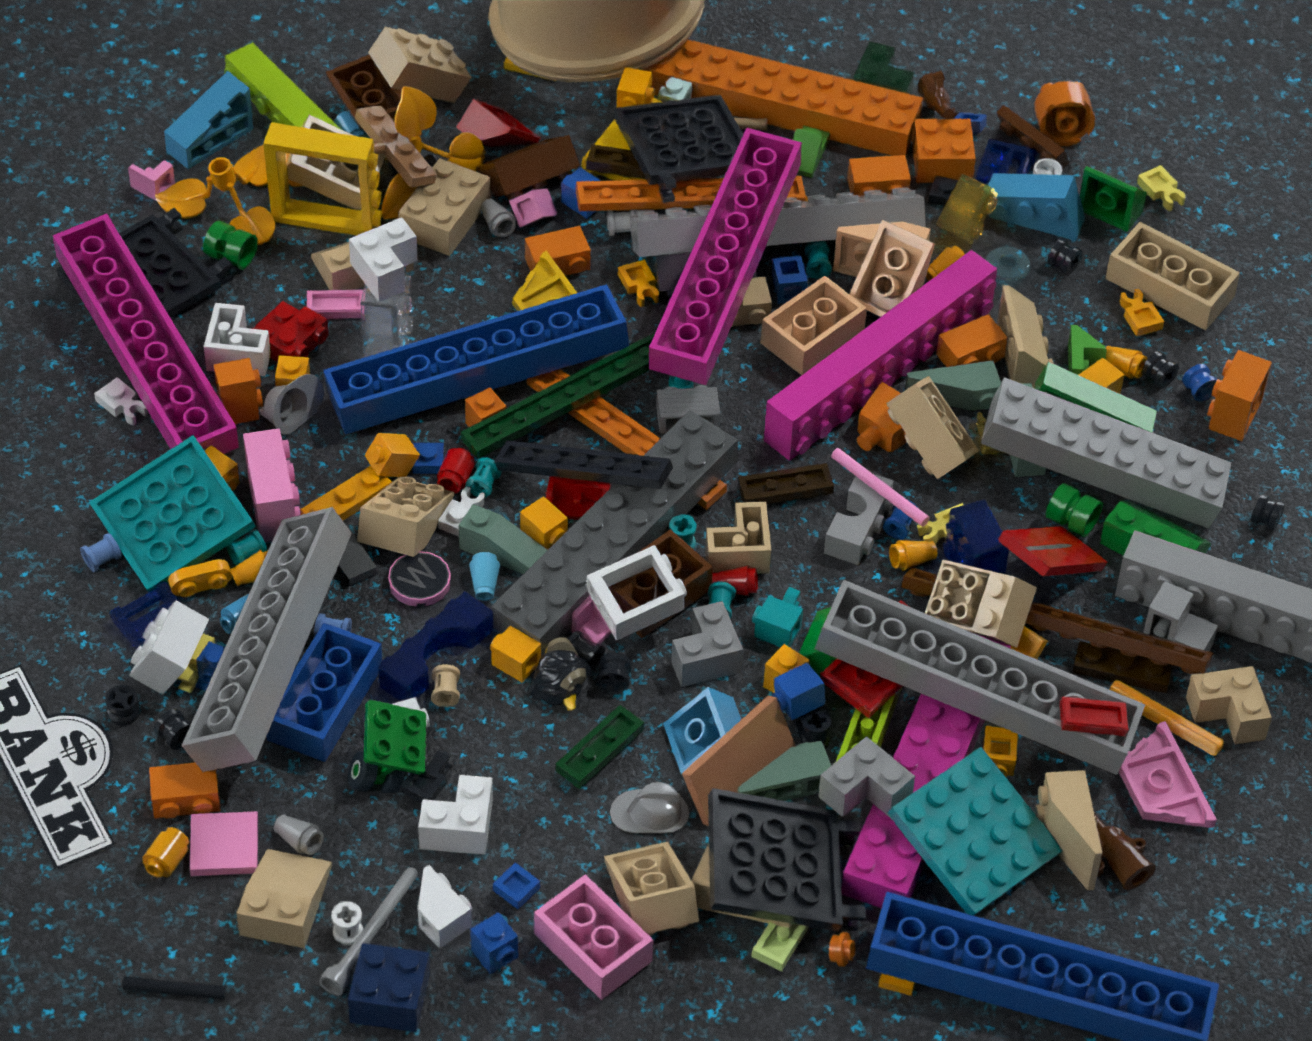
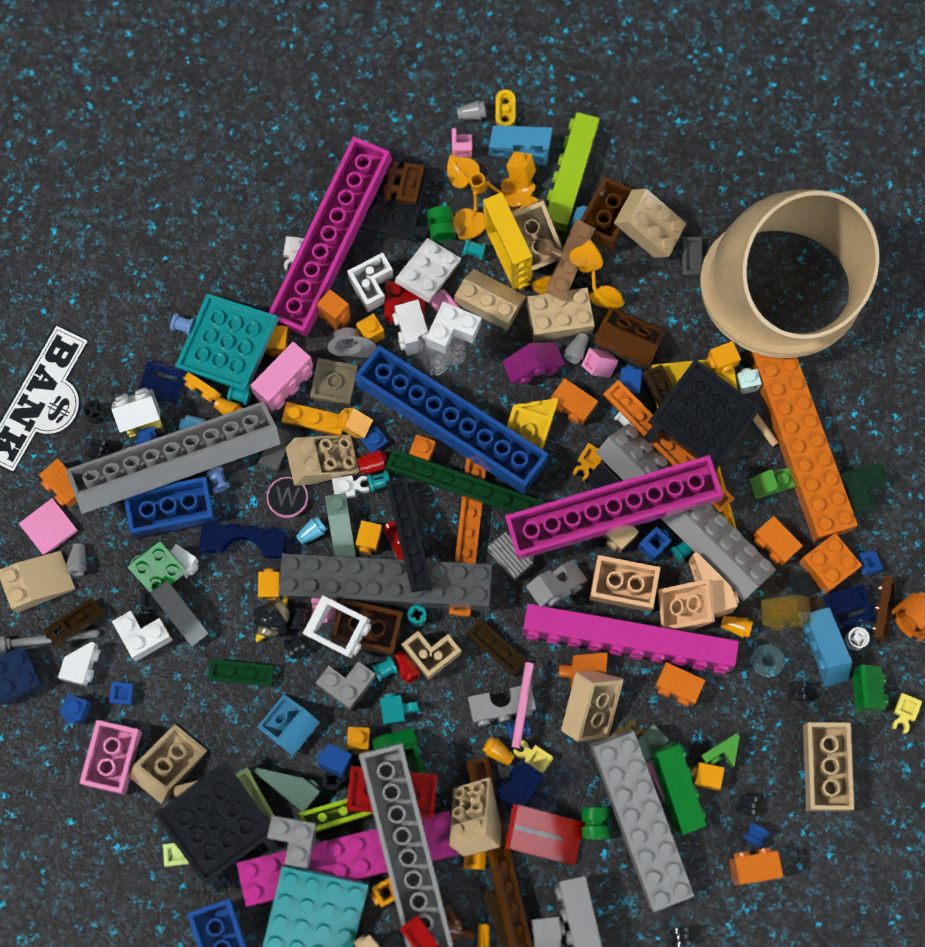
camera: 55 degrees right, 25 degrees up
(124, 145) = (474, 110): none -> light grey cone
(150, 118) = (505, 110): none -> yellow plate
(157, 240) = (410, 182): none -> reddish brown plate
(166, 852) = (19, 504): light orange brick -> none
(238, 138) = (521, 168): none -> light orange brick
(273, 287) = (428, 270): none -> white plate
(290, 236) = (474, 249): none -> teal bush
(322, 451) = (333, 382): none -> dark tan plate
(333, 327) = (411, 325): none -> white brick
(350, 923) = (31, 625): white bush -> none
(379, 880) = (73, 622): none -> dark brown plate
(445, 688) = (223, 564): tan bush -> none
(471, 755) = (179, 613): none -> dark grey slope
(476, 257) = (533, 361): none -> magenta brick
(488, 71) = (692, 256): none -> dark grey tile
(495, 126) = (646, 297): red slope -> none
(650, 810) = (221, 727): light grey piece -> none
(739, 754) = (275, 756): nougat tile -> none
(764, 372) = (560, 584): none -> light grey arch
(841, 949) = (197, 890): orange plate -> none
(935, 94) = (869, 532): reddish brown piece -> none
(964, 385) = (648, 701): sand green slope -> none
(1025, 346) = (706, 713): tan slope -> none
(1126, 360) = (740, 779): light orange cone -> none
(1130, 516) = (612, 883): green slope -> none
(1141, 316) = (785, 767): light orange plate -> none

